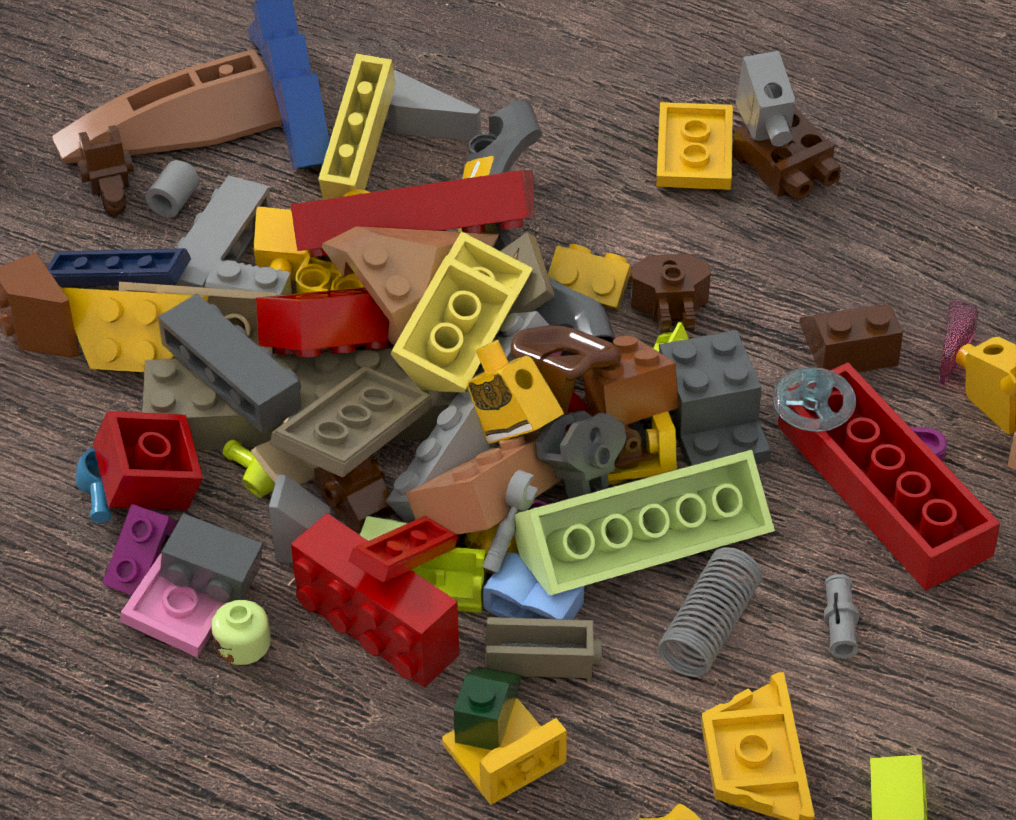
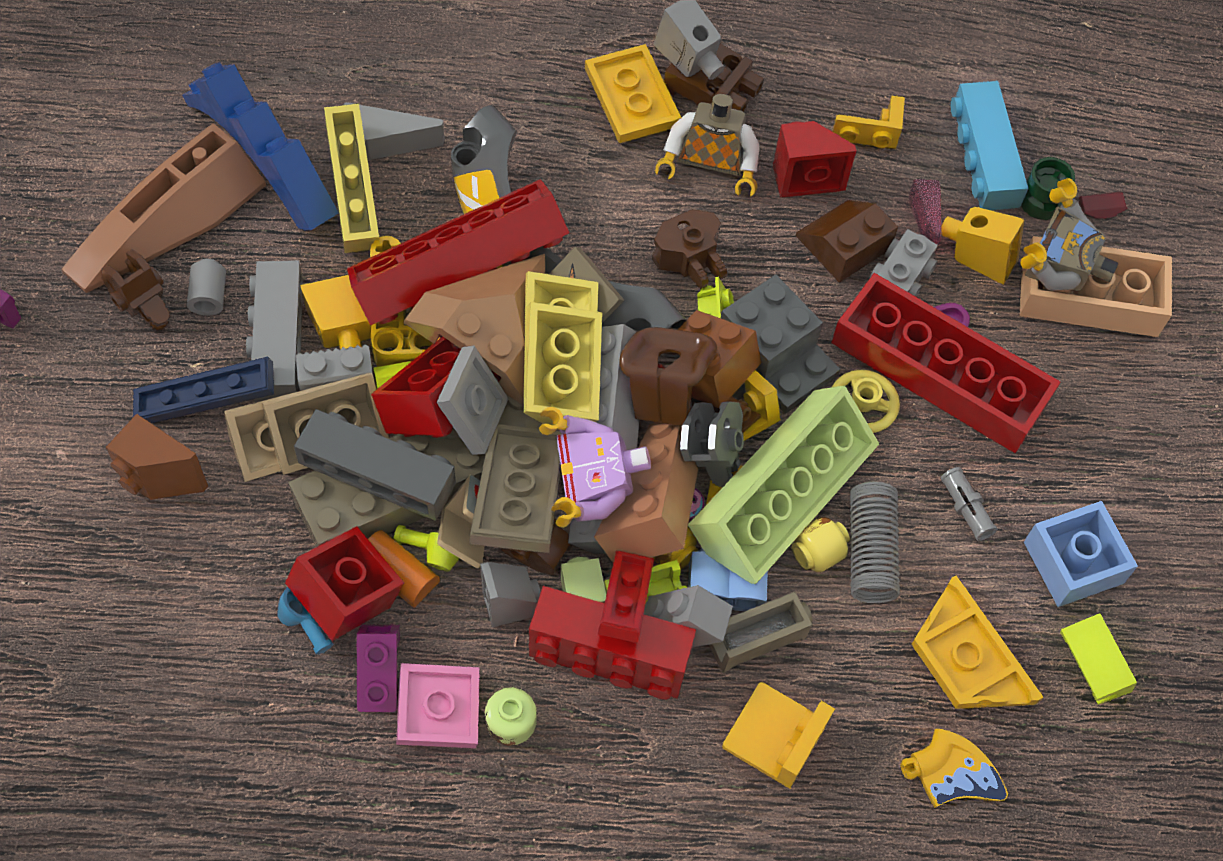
camera: 30 degrees left, 15 degrees up
(120, 326) = (252, 451): yellow wing -> none
(210, 559) = (453, 660): dark grey brick -> none
(220, 487) = (416, 576): none -> orange brick
(347, 329) = (472, 400): none -> light grey plate
(432, 423) = (593, 467): none -> lavender torso
(474, 590) = (695, 609): none -> light grey brick
(485, 707) = (750, 703): dark green slope -> none
(510, 395) = (646, 414): yellow torso -> none
(519, 497) = (692, 540): light grey piece -> none
(592, 275) = (617, 254): yellow bracket -> none
(653, 597) = (821, 545): none -> light yellow head
(752, 205) = (714, 140): none -> torso
(784, 485) = (870, 385): none -> light yellow piece
(813, 394) = (873, 303): clear light blue piece -> none
(845, 250) = (811, 160): none -> red slope
(903, 375) = (908, 261): none -> light grey brick
(935, 696) = (1080, 553): none -> light blue brick
(946, 253) = (878, 133): none -> yellow bracket

